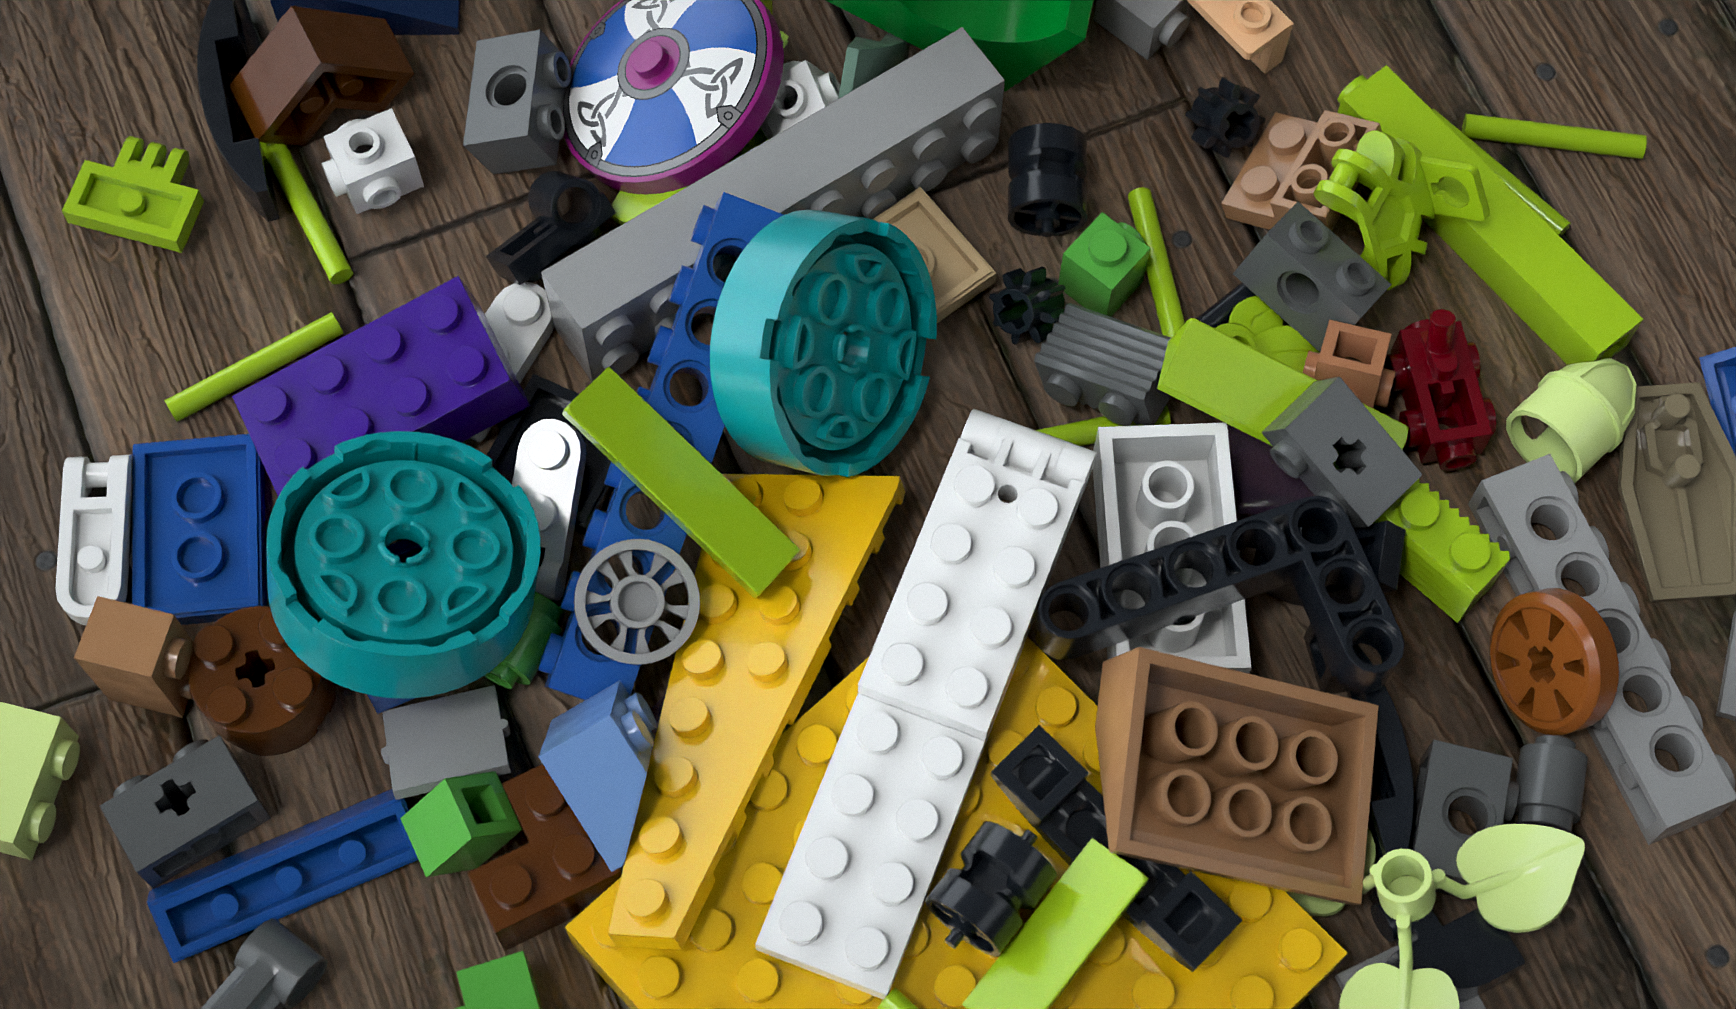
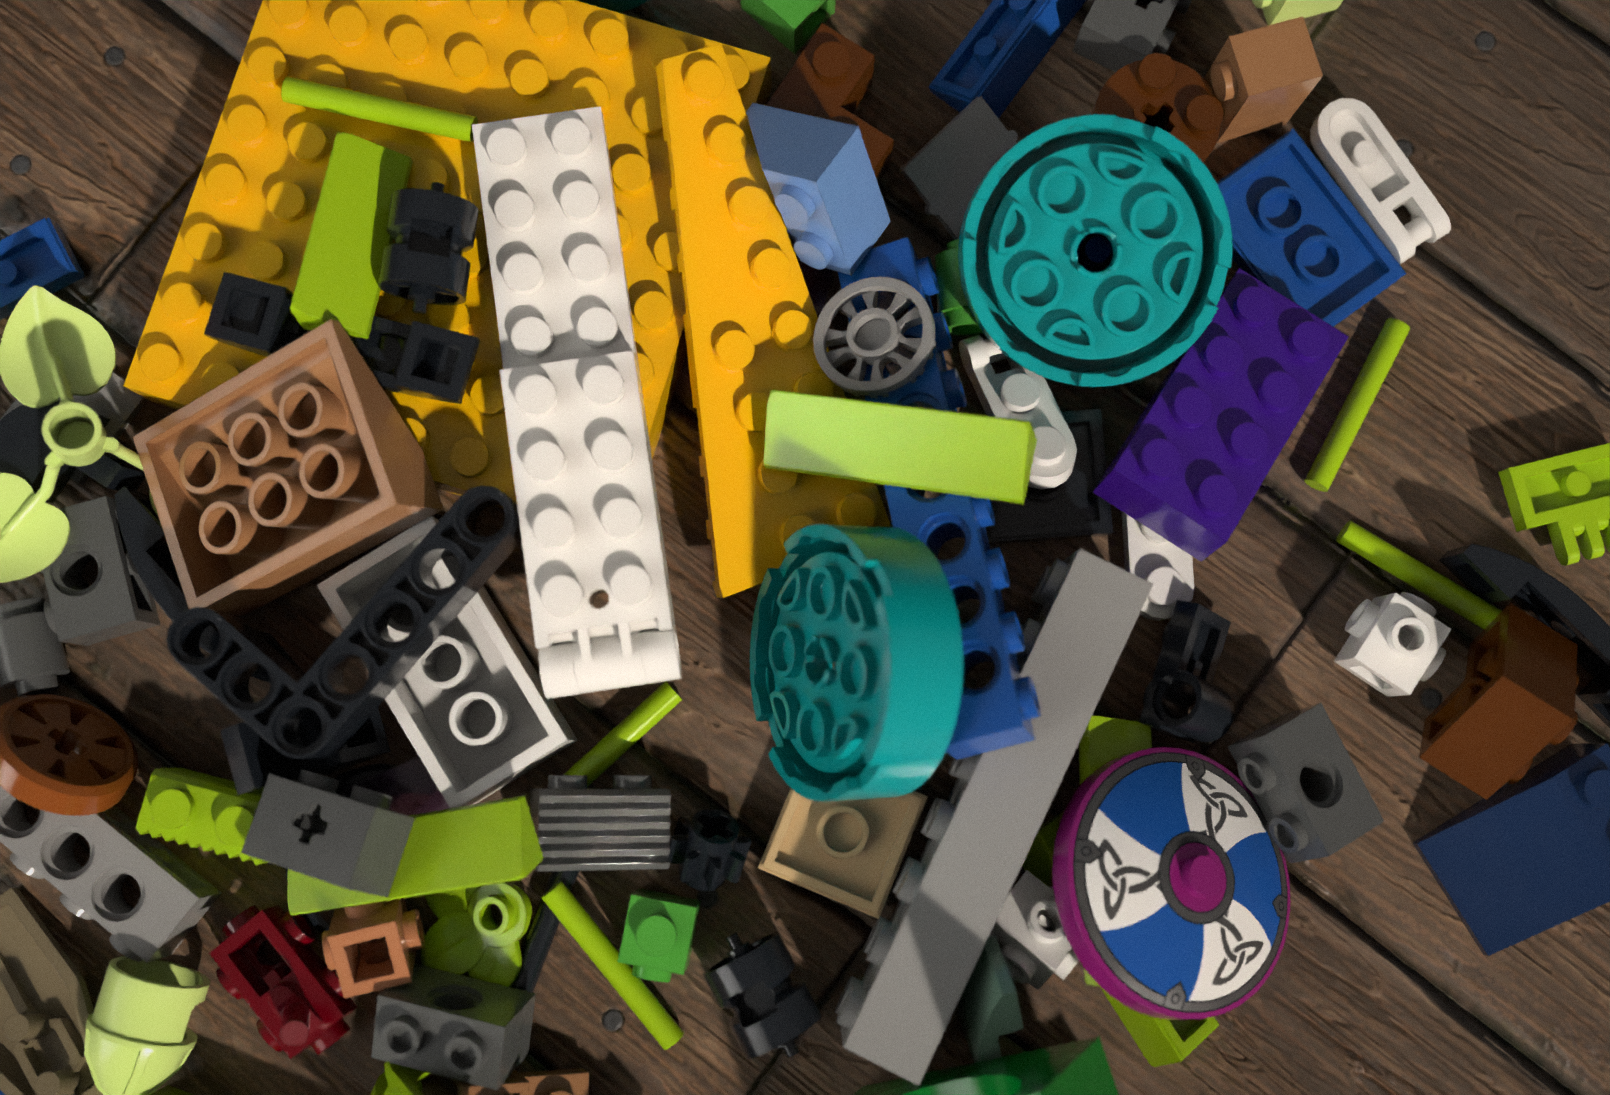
camera: 150 degrees right, 15 degrees up
(460, 823) = (911, 102): bright green brick -> none

